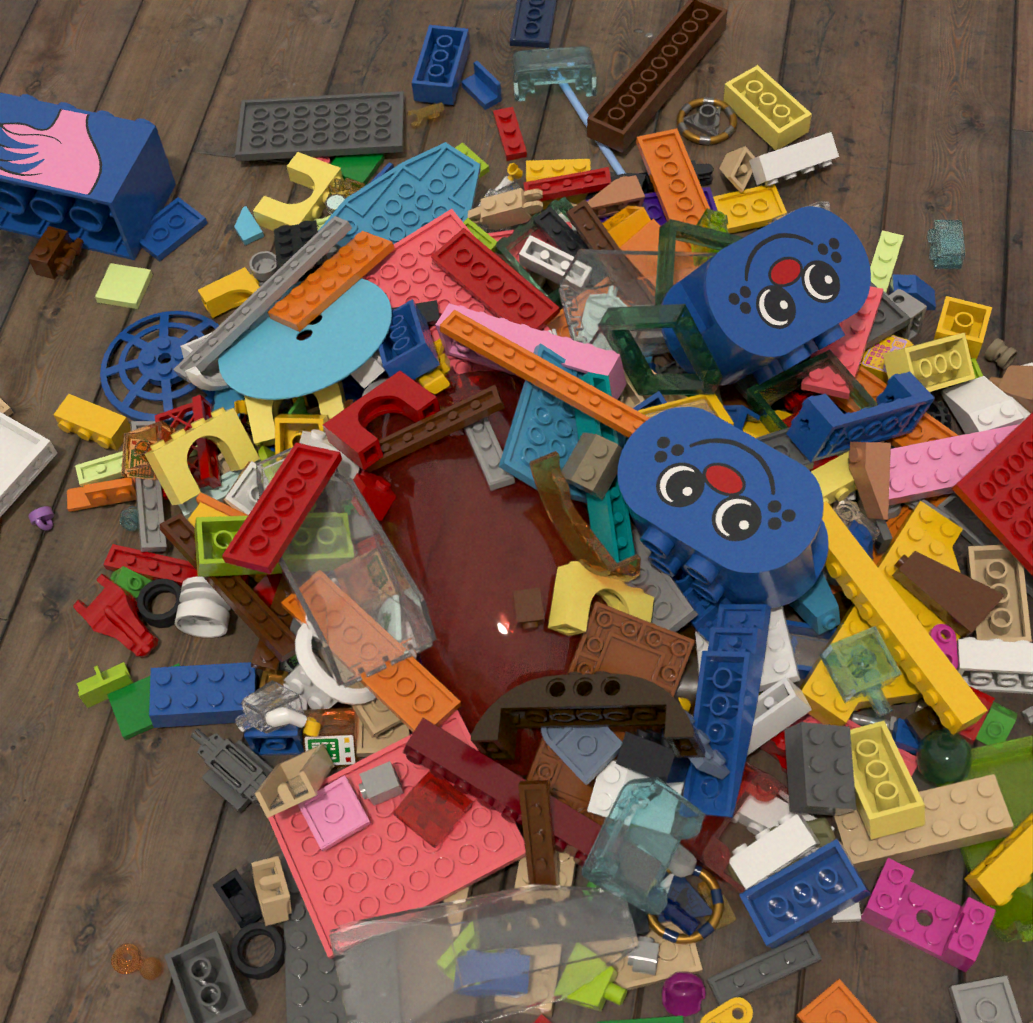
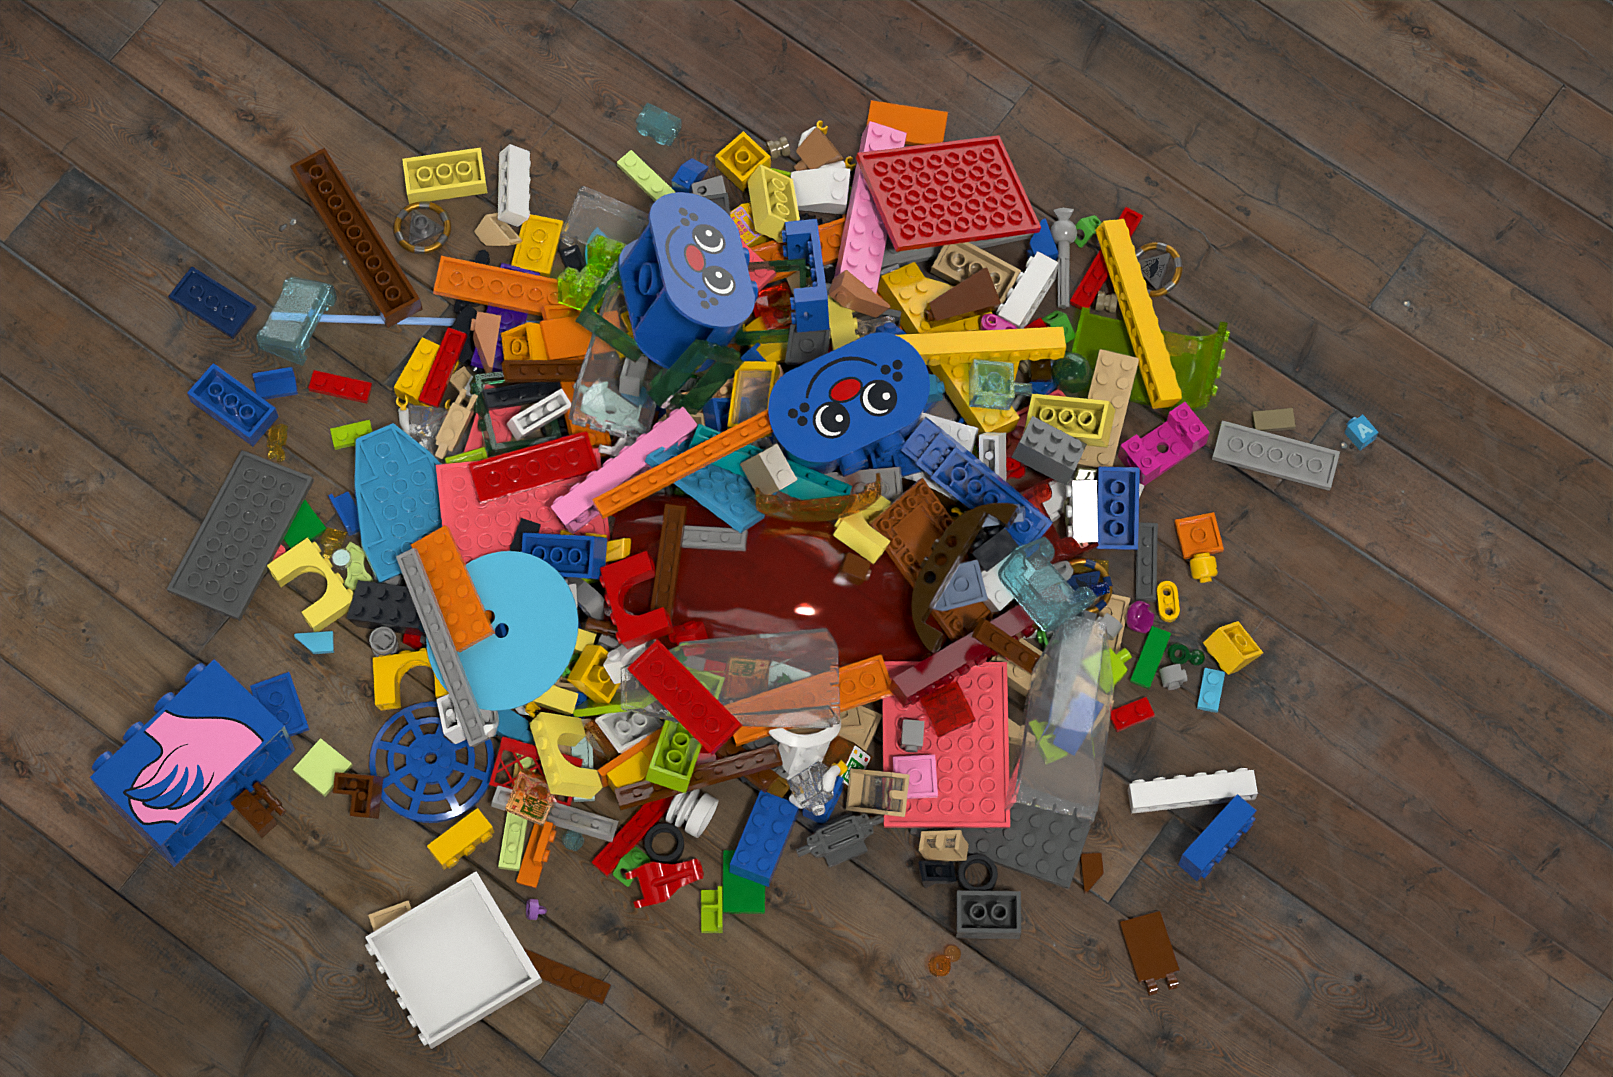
camera: 70 degrees left, 10 degrees up
(102, 322) = (365, 793): none -> reddish brown brick

